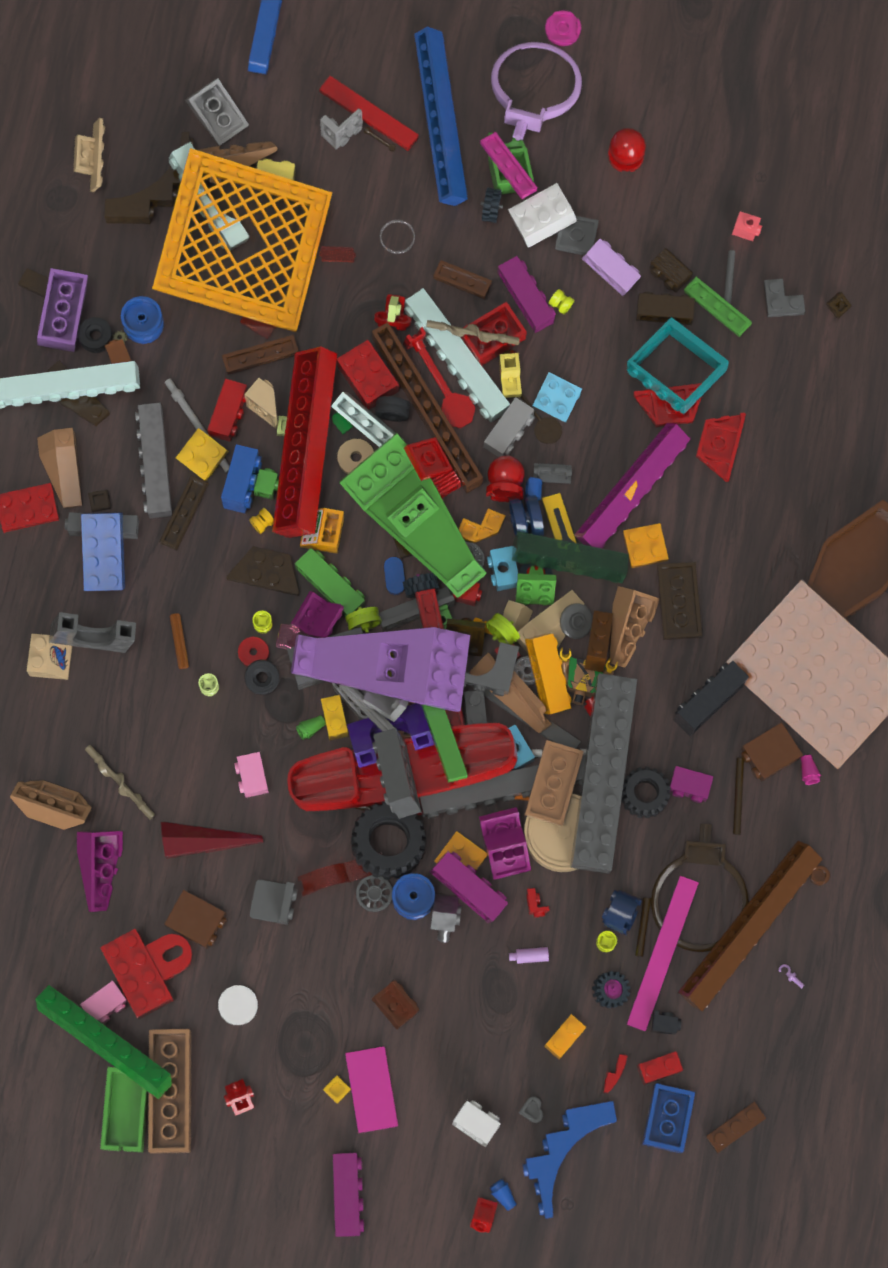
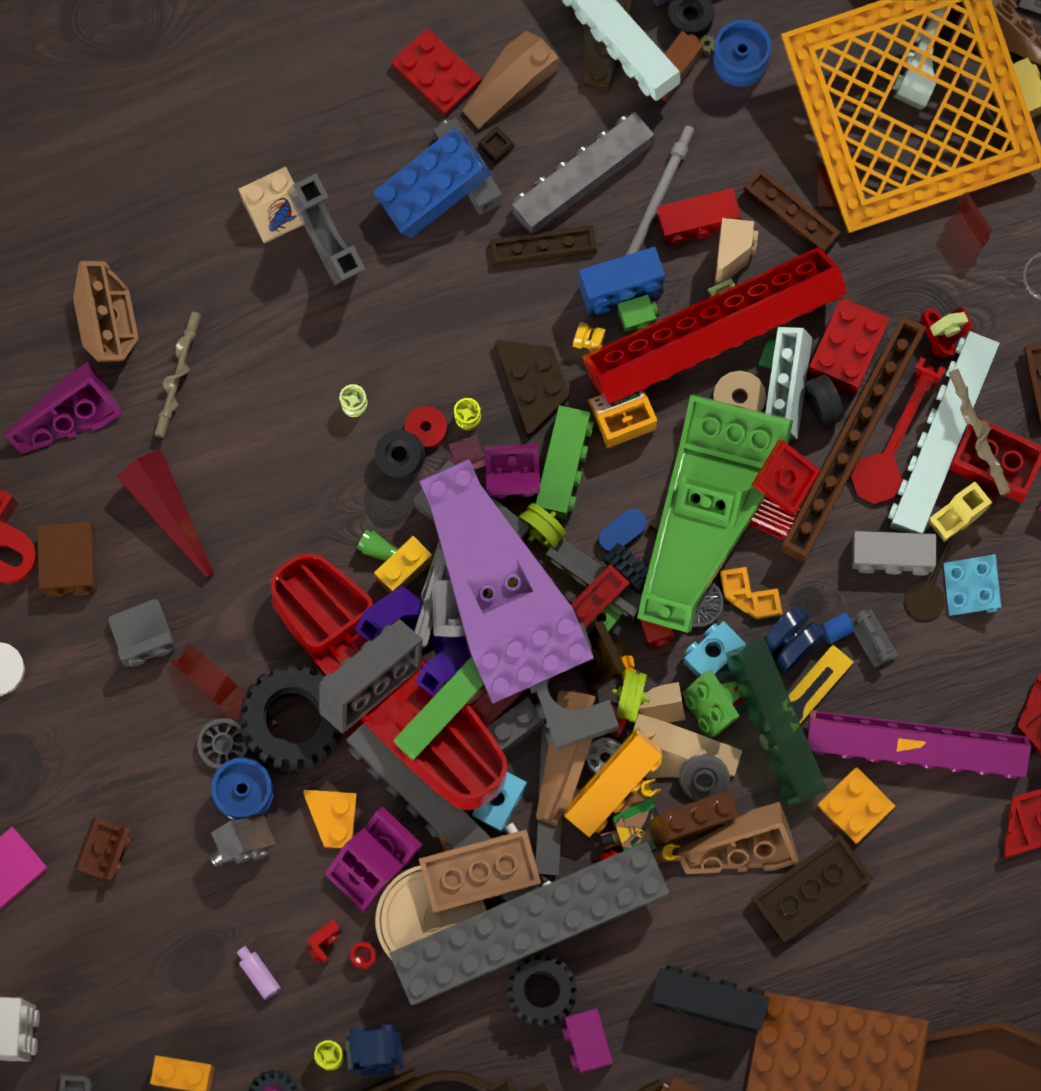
camera: 65 degrees right, 0 degrees up
(179, 641) = (385, 336): dark orange axle -> none
(202, 454) = (625, 221): yellow plate -> none
(252, 775) = (276, 515): bright pink brick -> none
(469, 887) = (291, 847): magenta brick -> none
(505, 479) = (828, 584): red tile -> none
(558, 885) = (363, 955): none -> red tile

